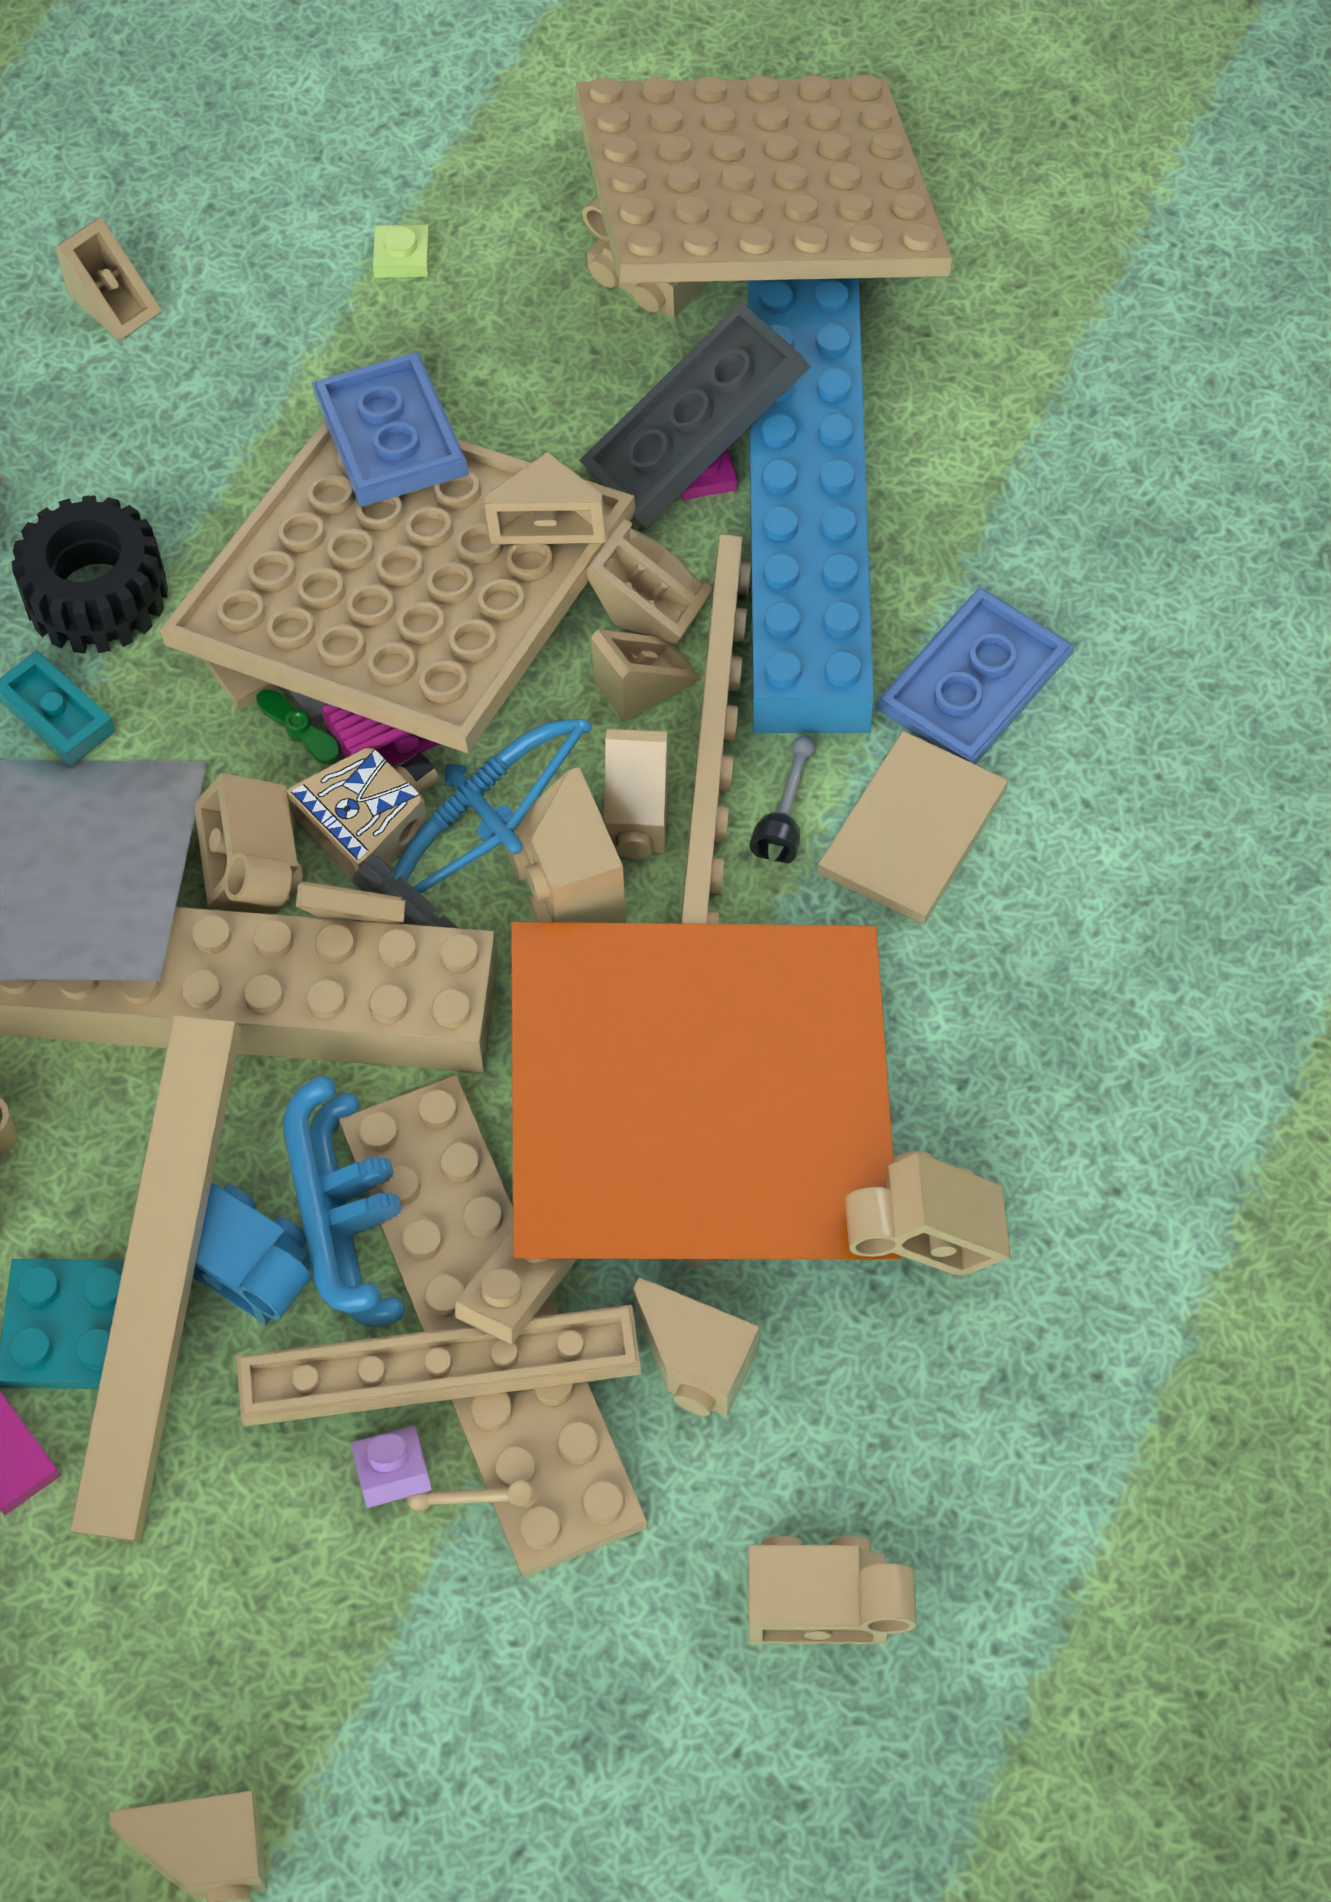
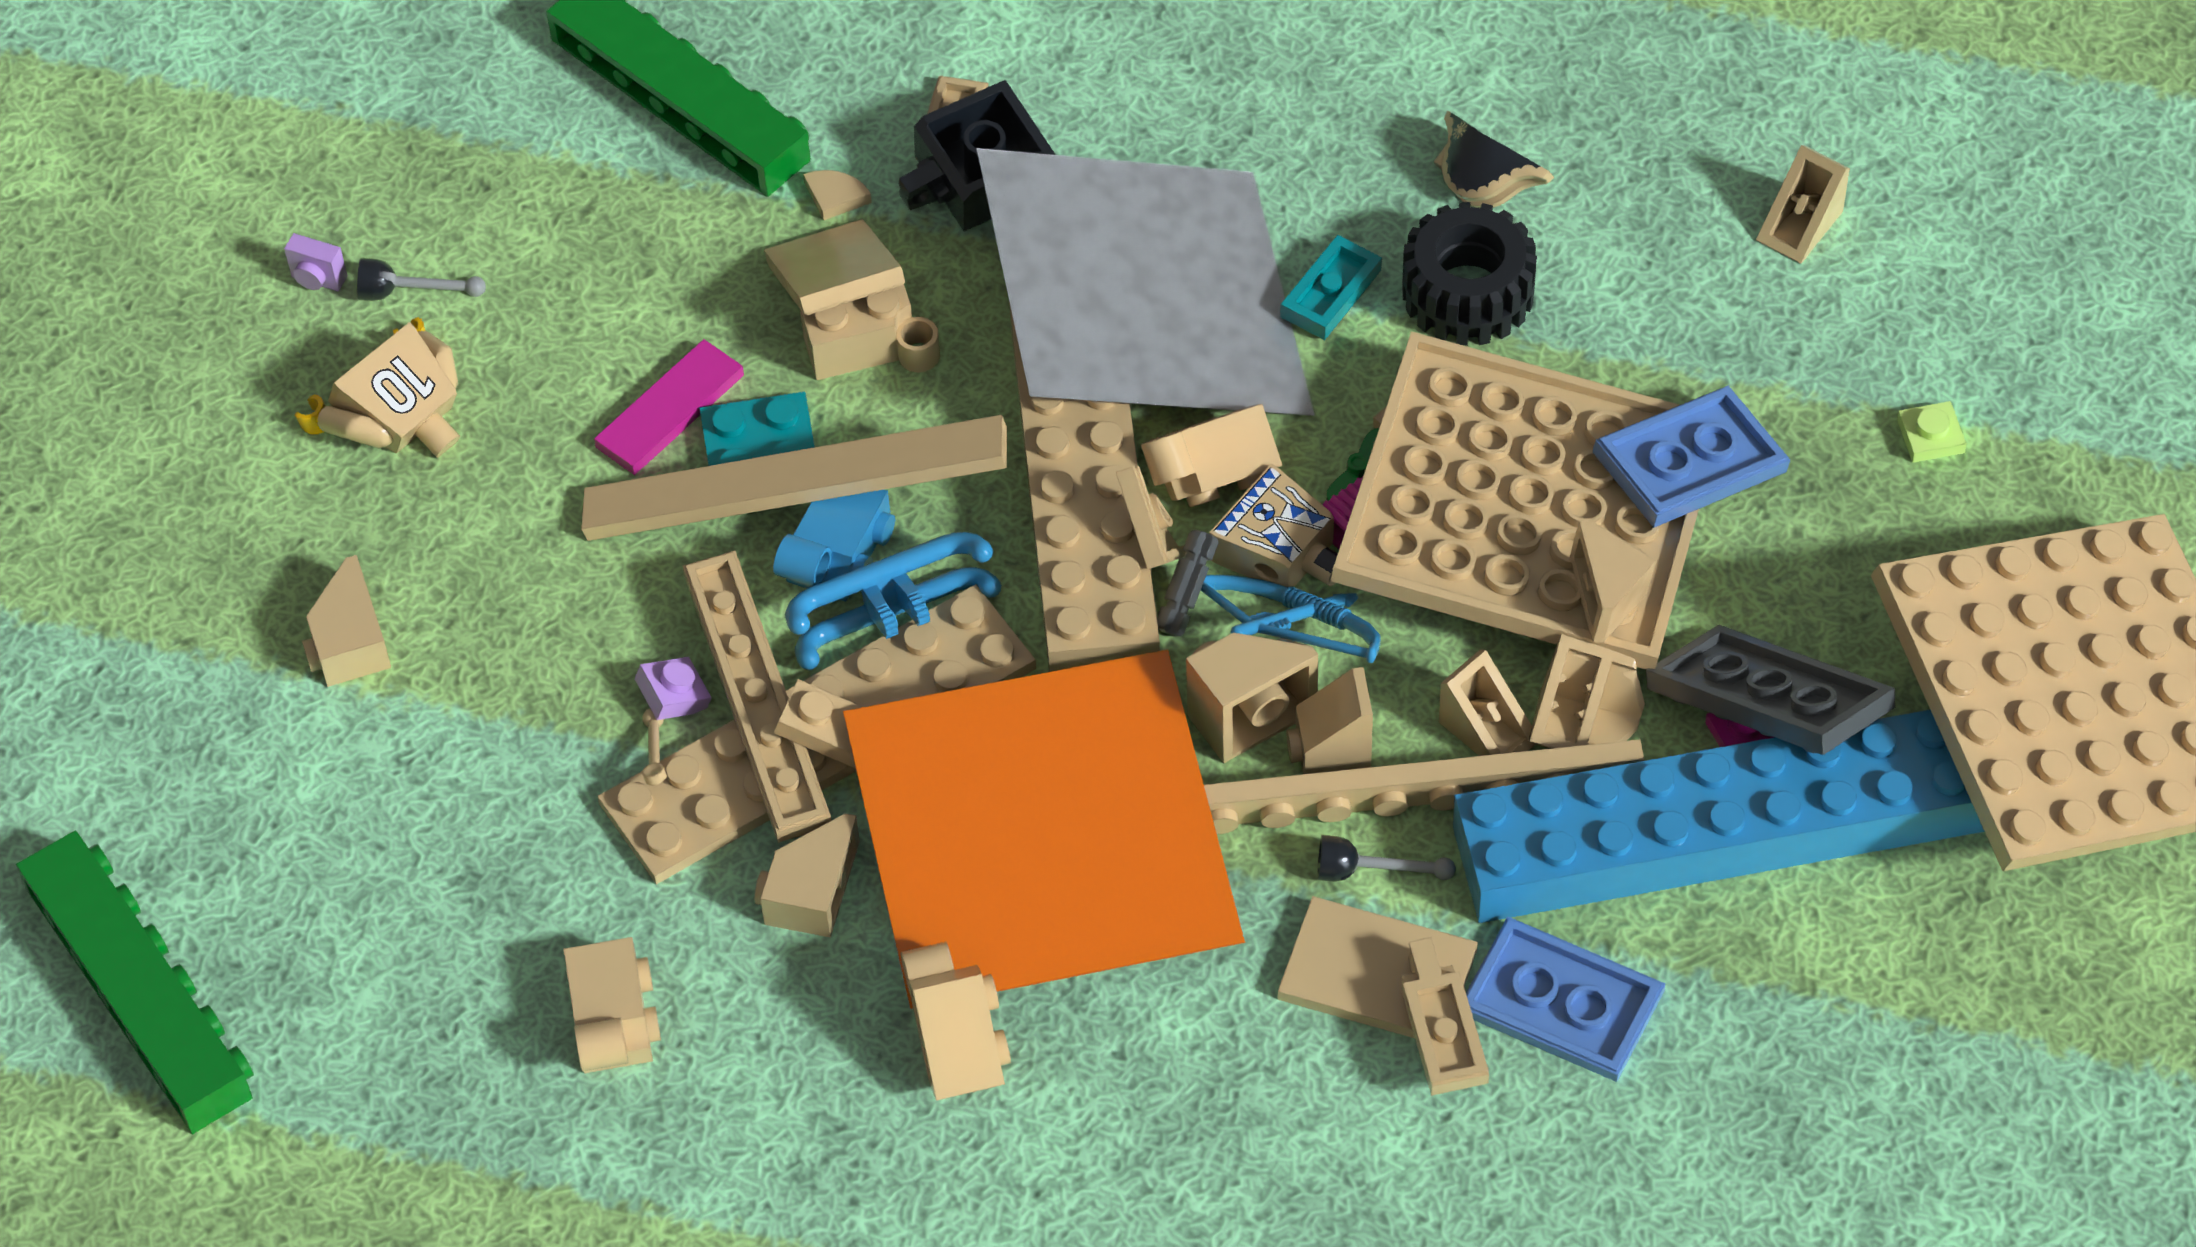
camera: 80 degrees right, 5 degrees down
(1001, 768) = (1442, 1022): none -> tan hinge

